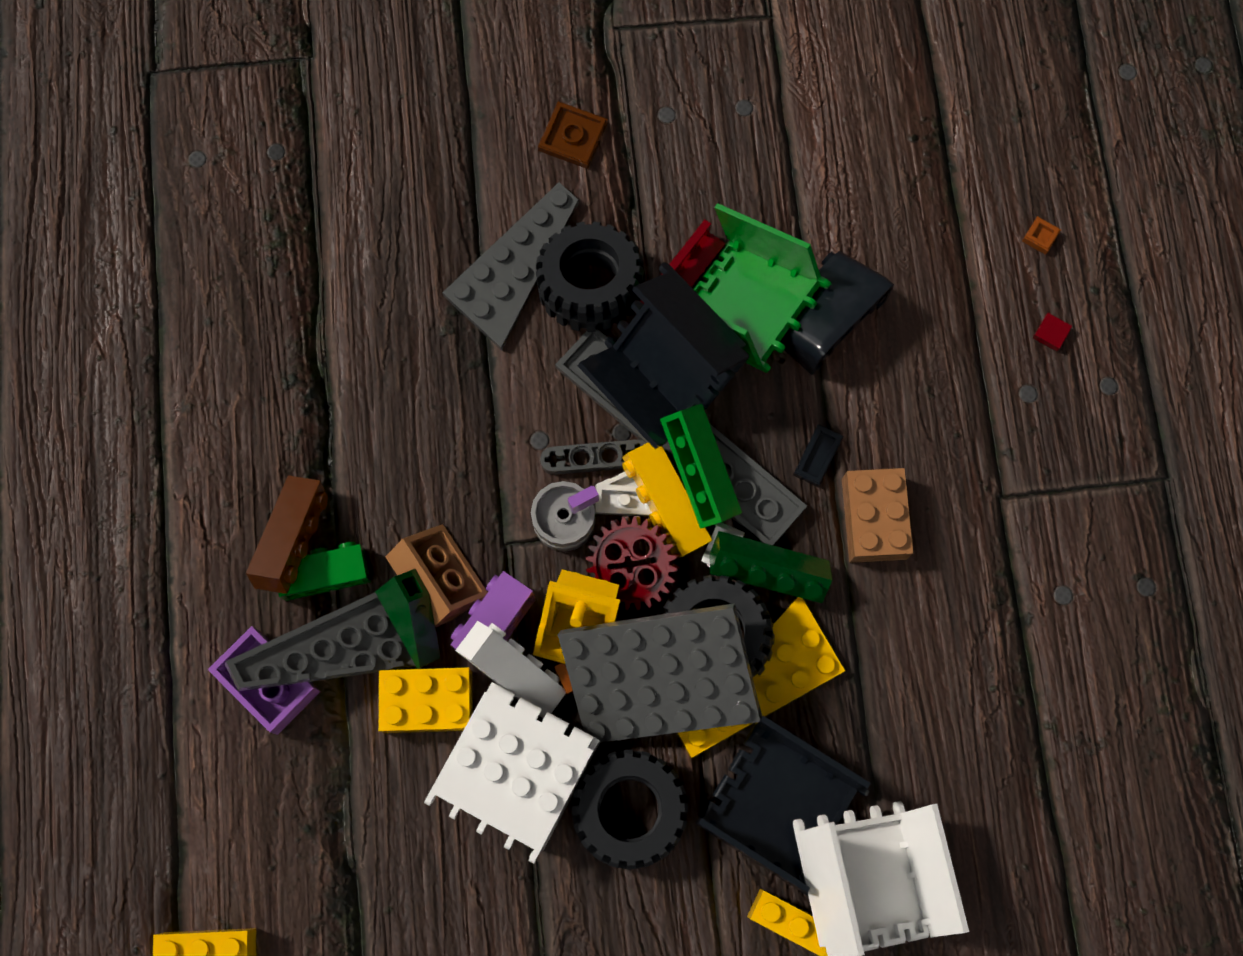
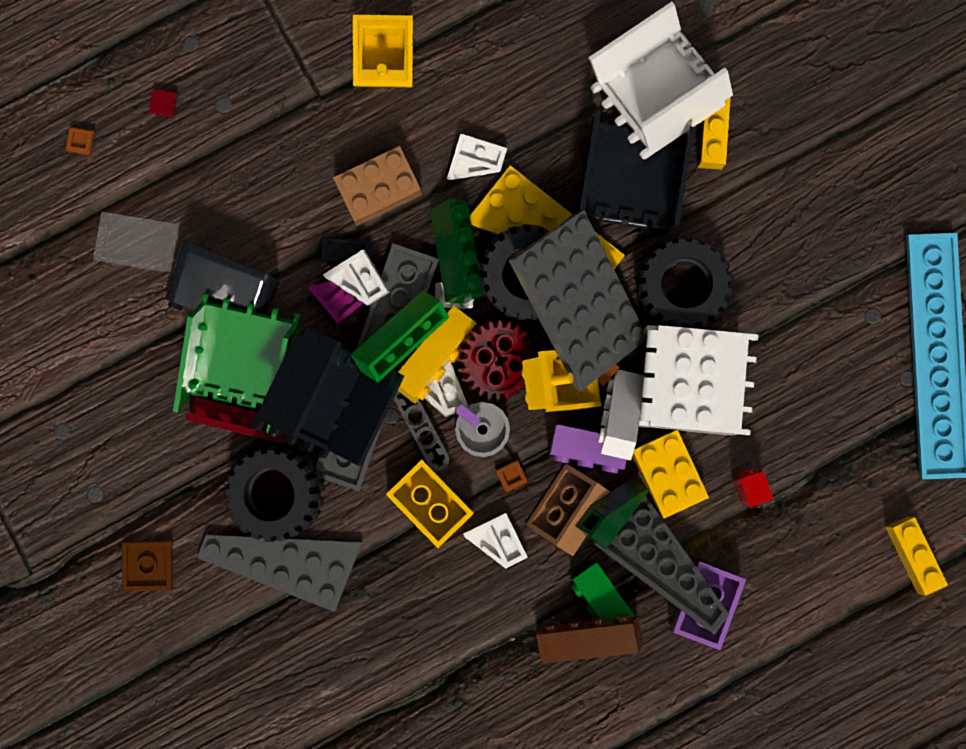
camera: 115 degrees left, 10 degrees up
(367, 785) = (752, 487): none -> red brick
(438, 487) = (498, 541): none -> white wing
(501, 530) = (511, 476): none -> dark orange tile
(509, 429) = (430, 503): none -> yellow brick
(770, 431) = (335, 300): none -> magenta wing
(782, 453) = (359, 278): none -> white wing
(867, 636) = (475, 158): none -> white wing
(912, 247) = (136, 242): none -> clear piece
(1028, 577) = (383, 50): none -> yellow piece

